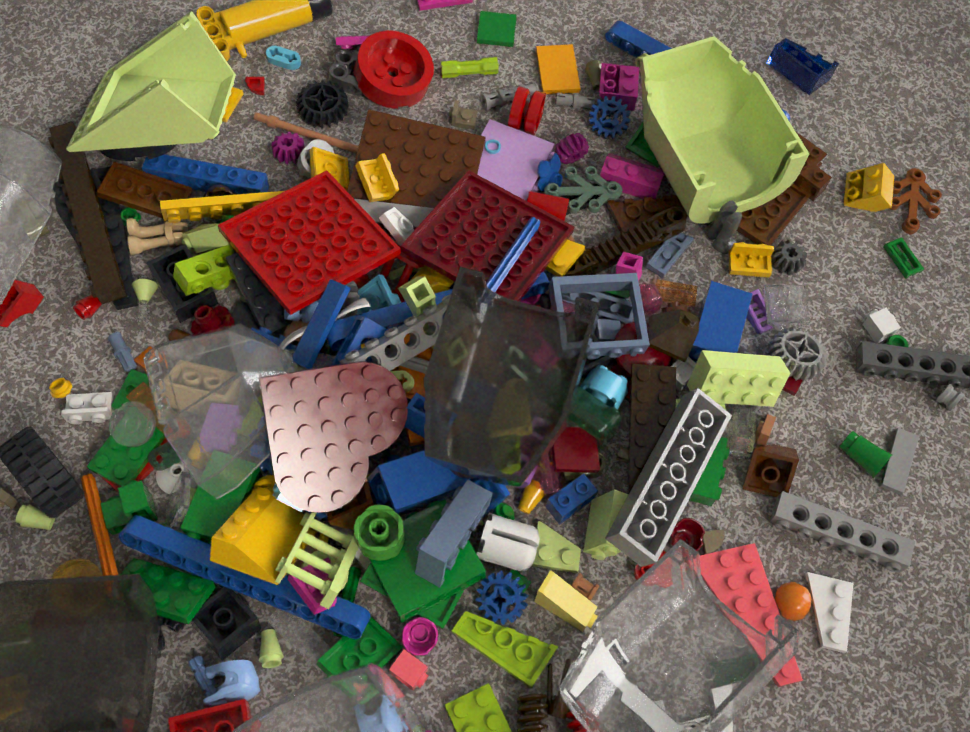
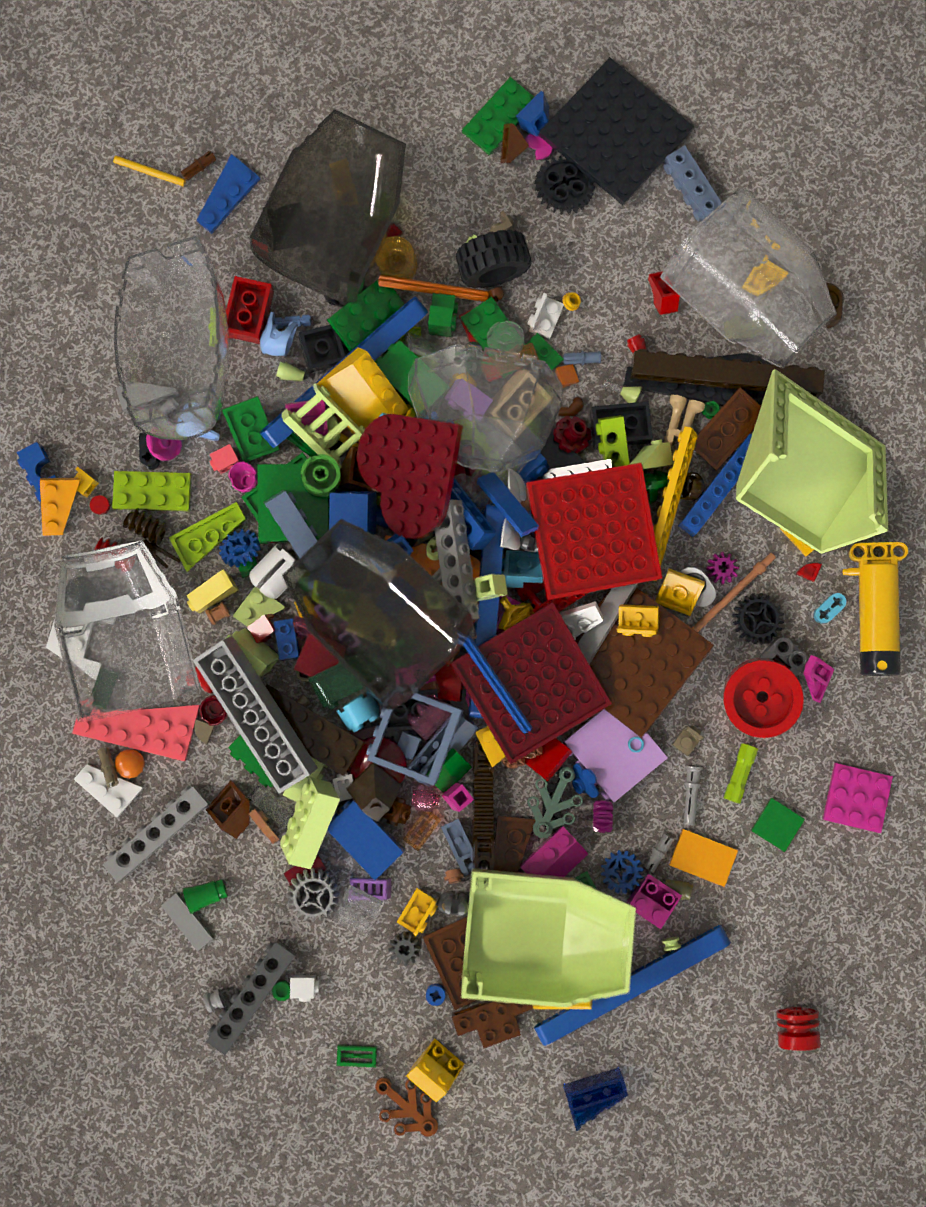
camera: 120 degrees right, 20 degrees up
(79, 468) = (497, 293): none -> reddish brown hinge
(525, 110) = (658, 798): red wheel -> none
(574, 528) = (262, 628): none -> panel
(700, 246) = (453, 876): none -> nougat plate
(804, 218) = (435, 990): none -> blue wheel
(813, 616) = (107, 767): none -> dark tan pin

